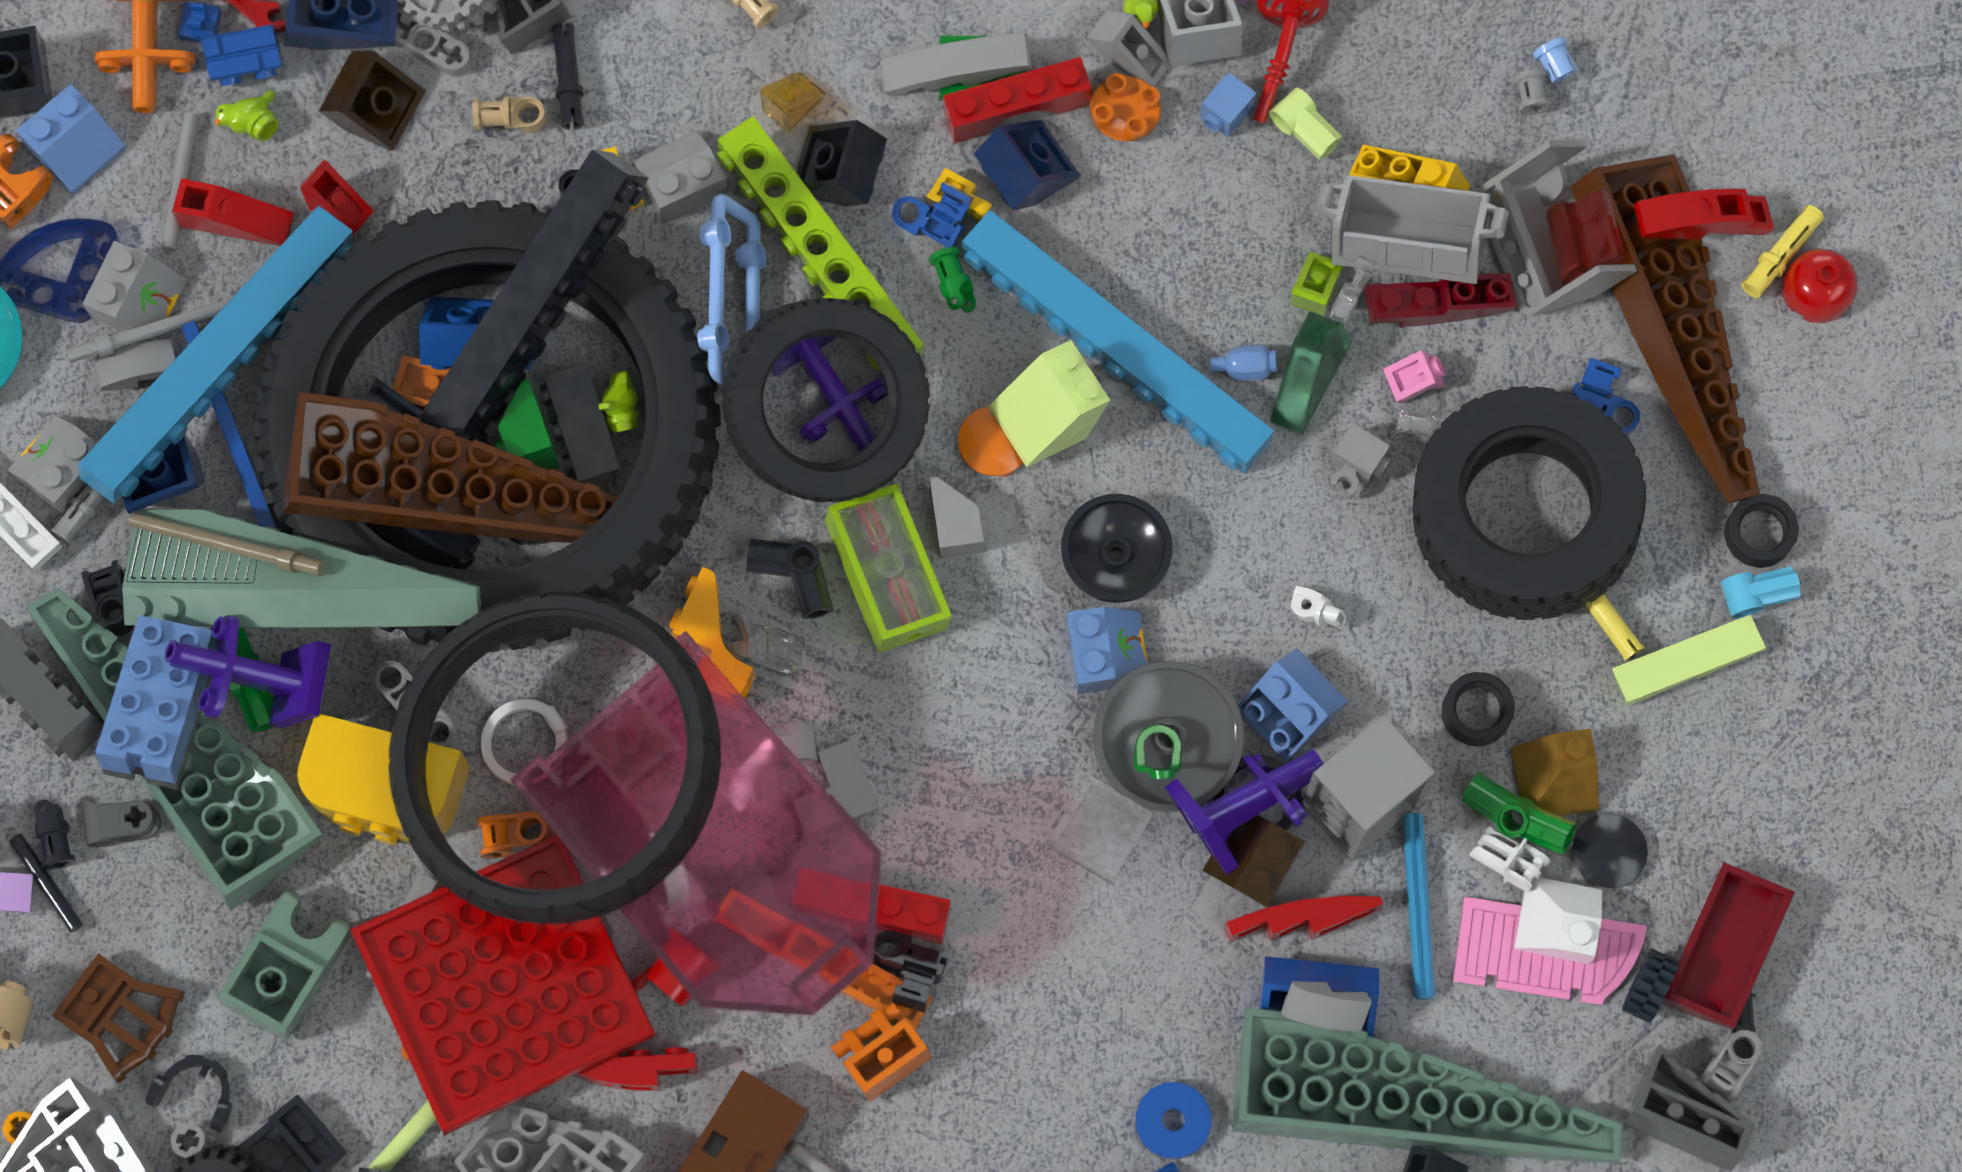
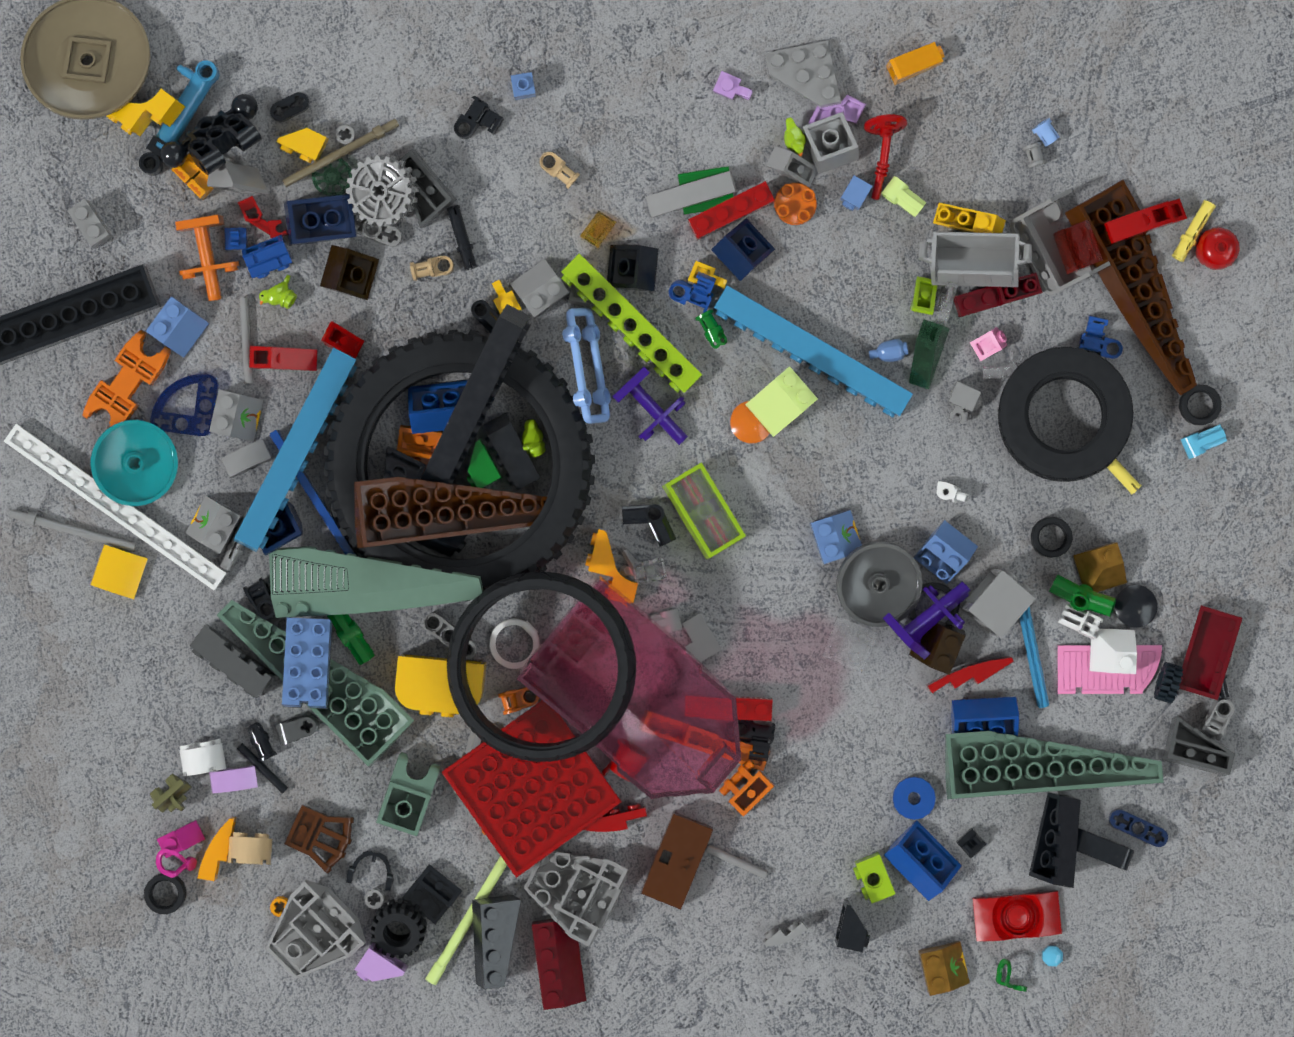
camera: 10 degrees left, 15 degrees up
(104, 345) = (226, 452): light grey bar -> none
(285, 559) = (366, 575): dark tan bar -> none
(294, 683) = (382, 639): dark purple piece -> none
(904, 417) = (684, 456): black tyre -> none
(957, 521) = (738, 475): light grey slope -> none
(1121, 525) = (848, 474): black dish -> none
(1139, 757) = (878, 611): green piece -> none
(1320, 1007) = (986, 728): light grey slope -> none
(1688, 660) = (1167, 488): yellowish green slope -> none

